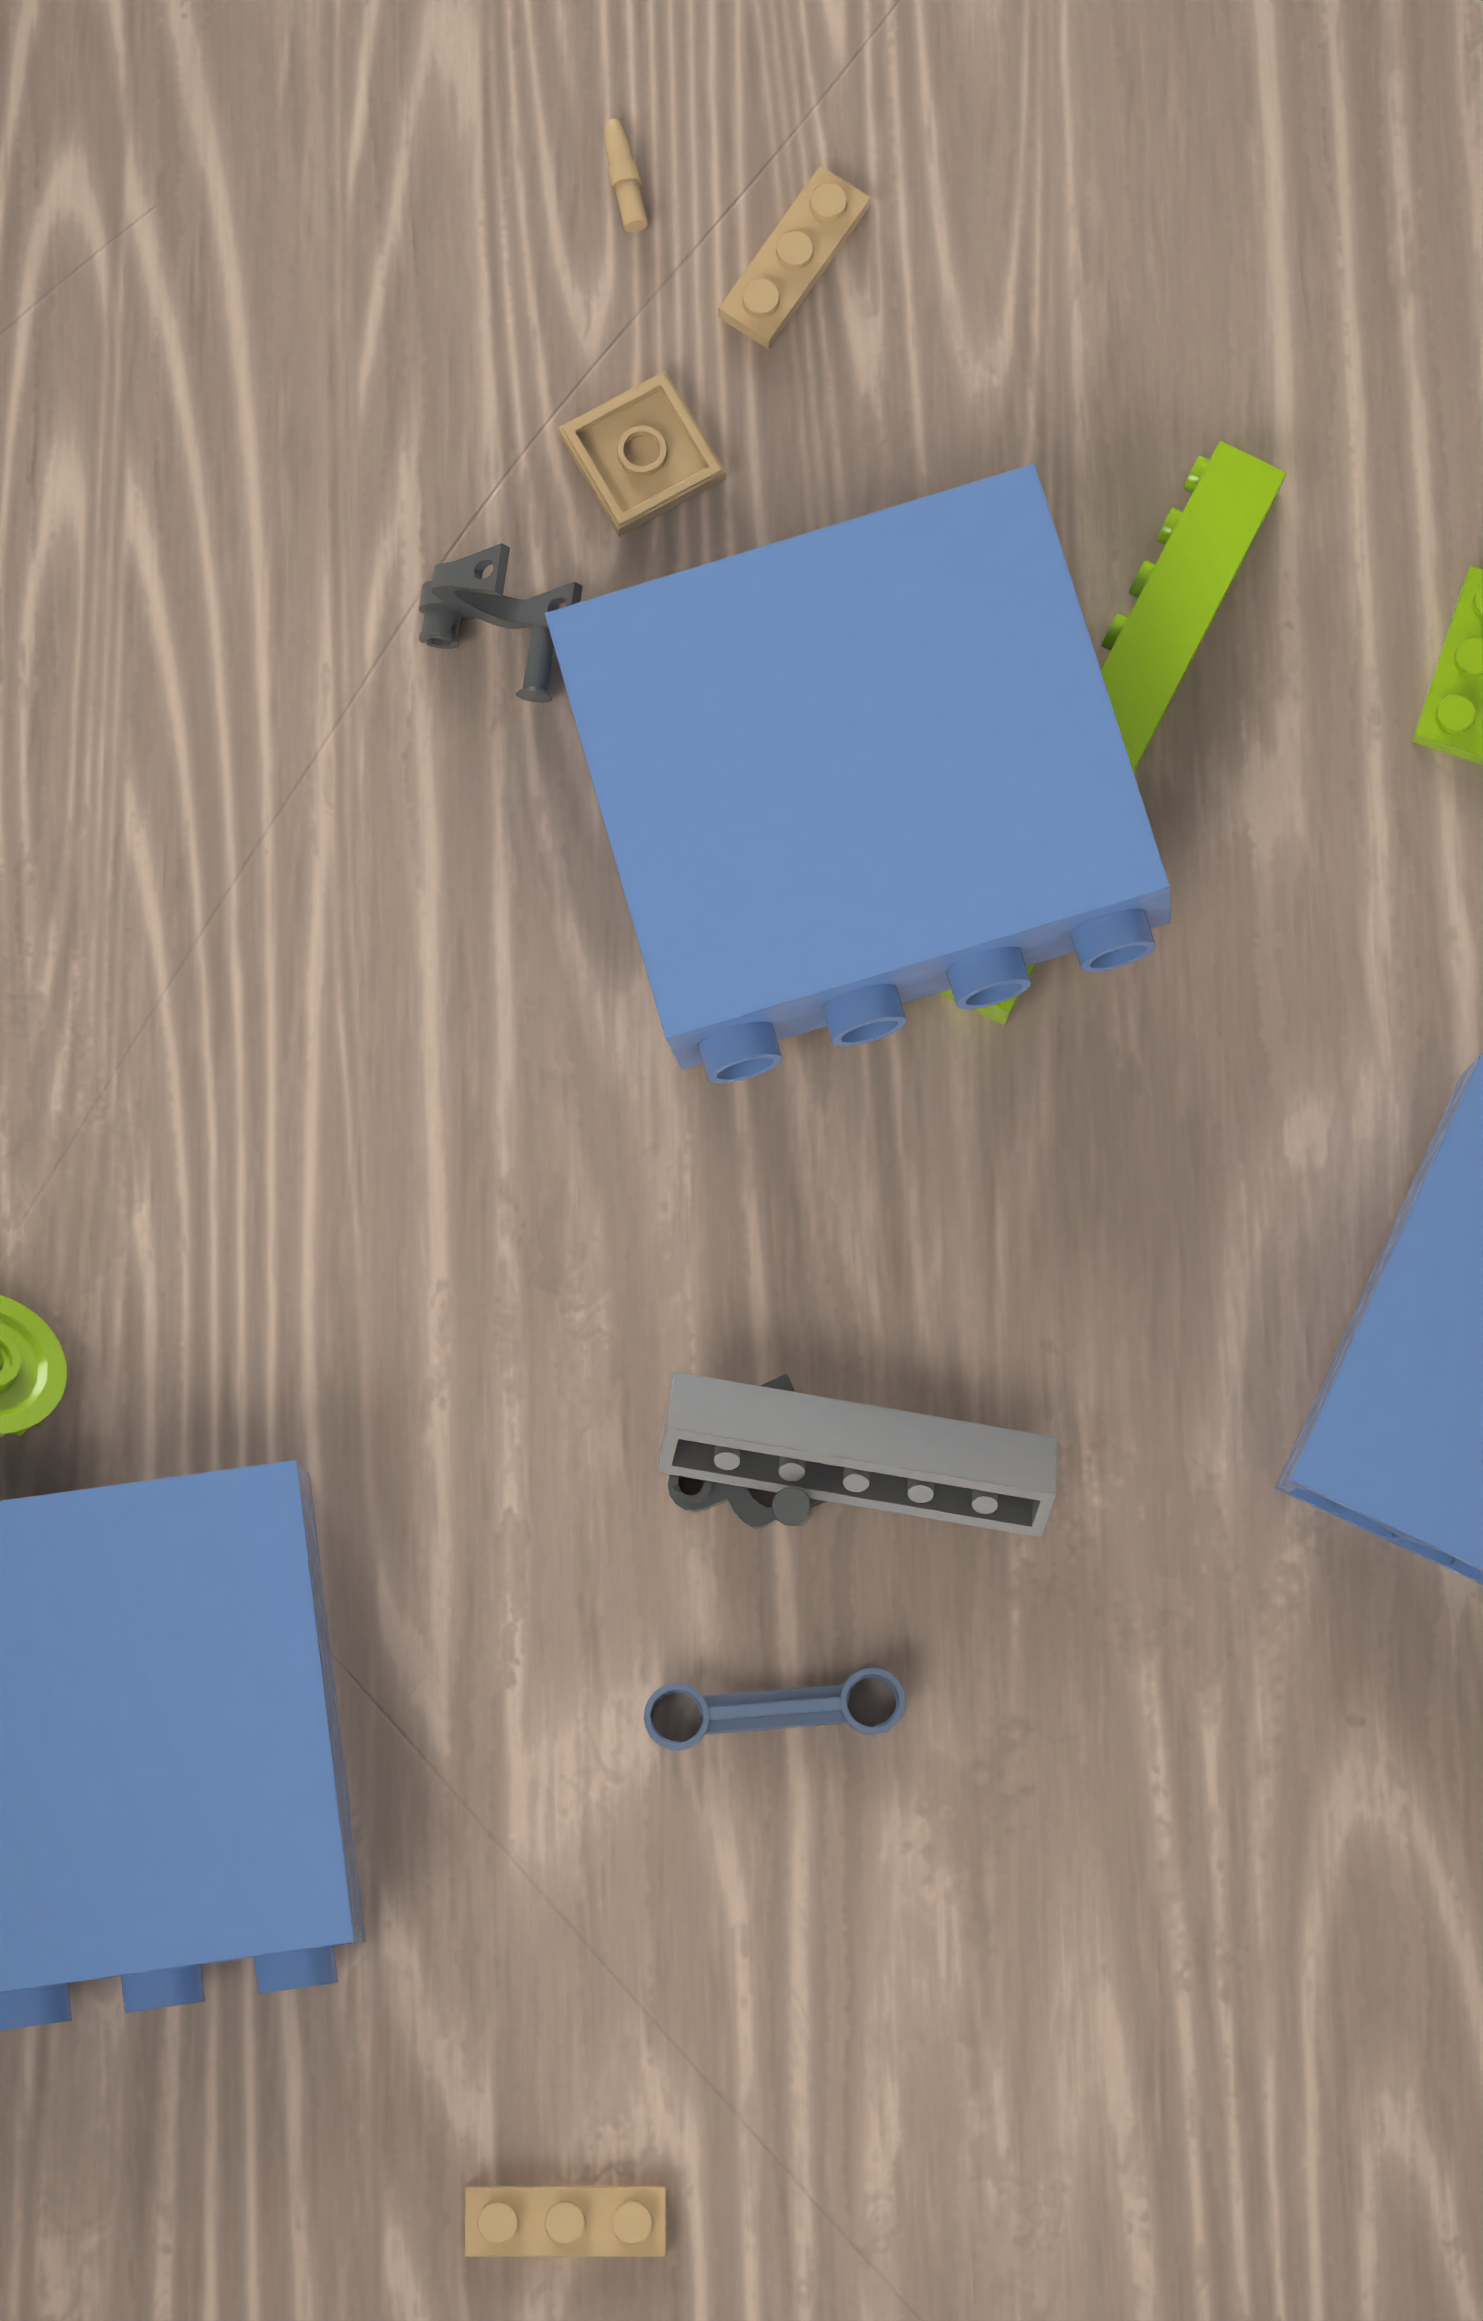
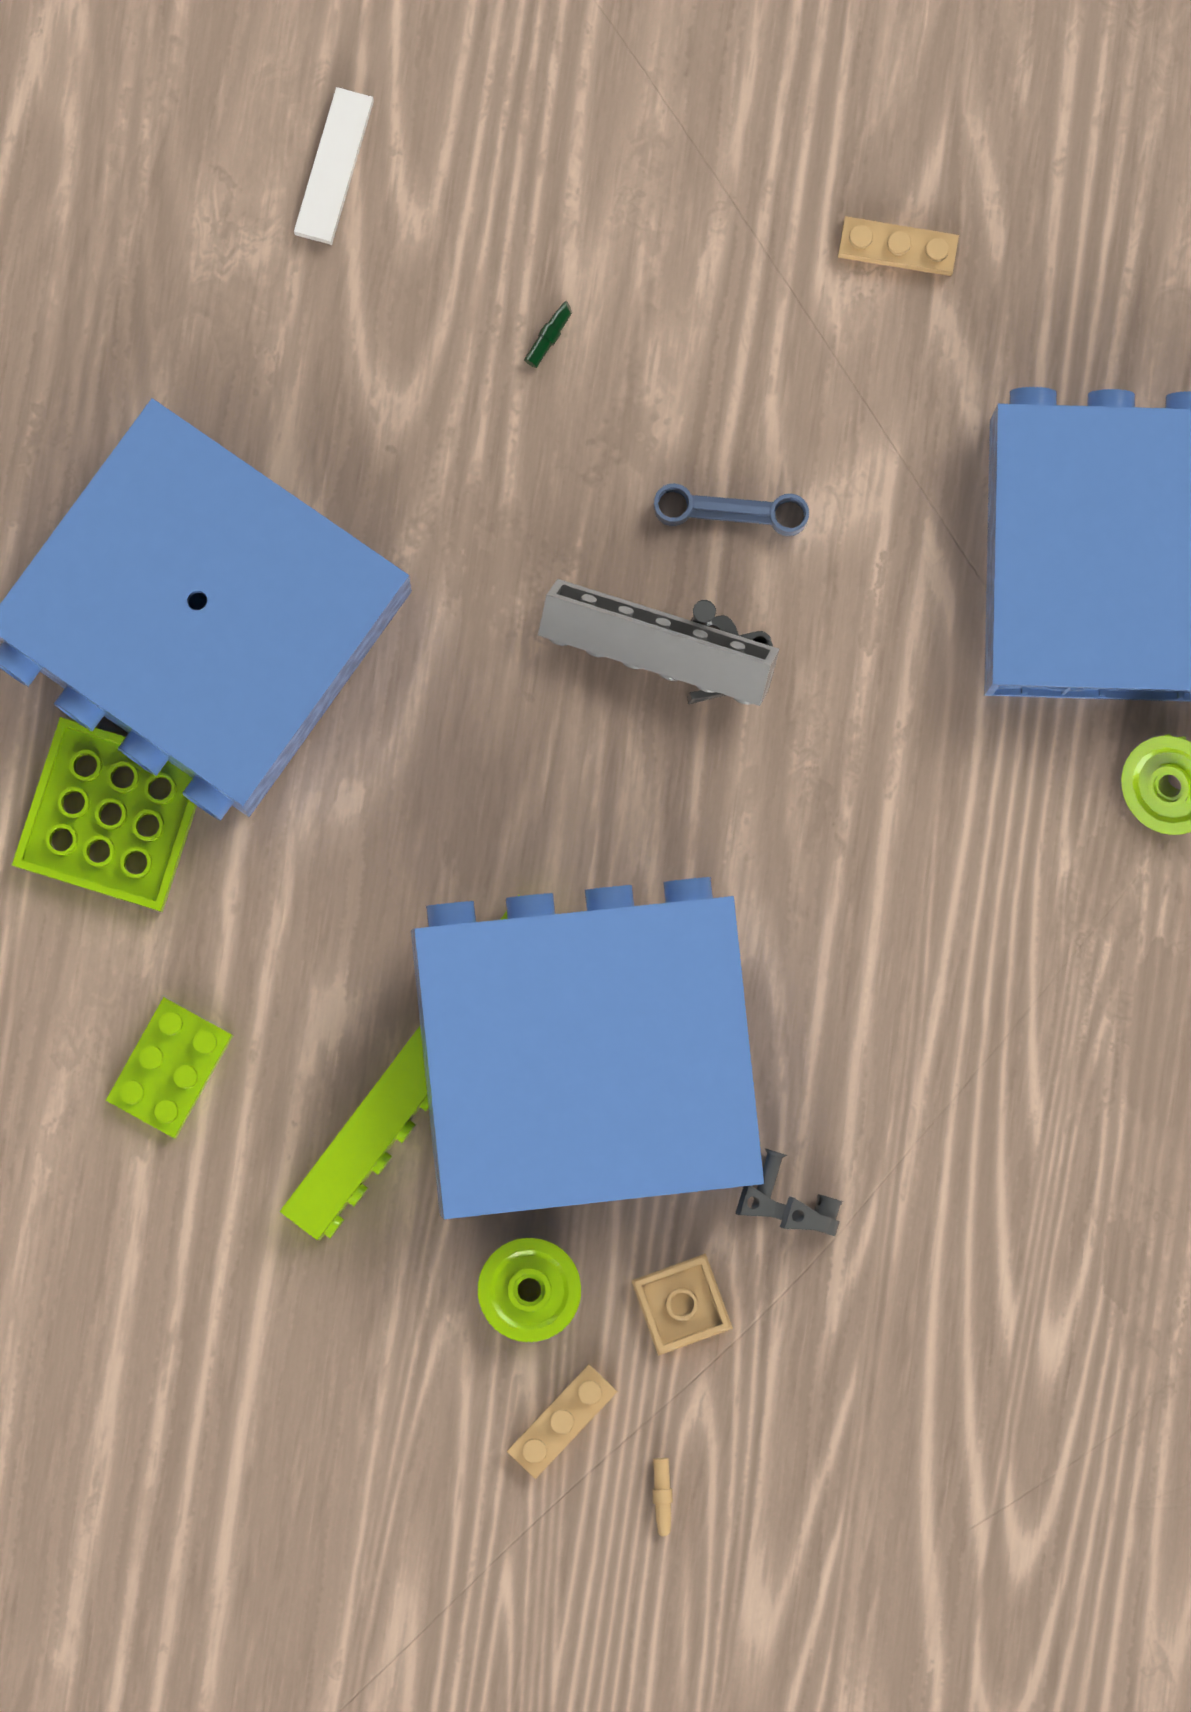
camera: 165 degrees left, 5 degrees up
(887, 389) = (500, 1293): none -> lime gear
(1131, 1961) = (548, 335): none -> dark green piece

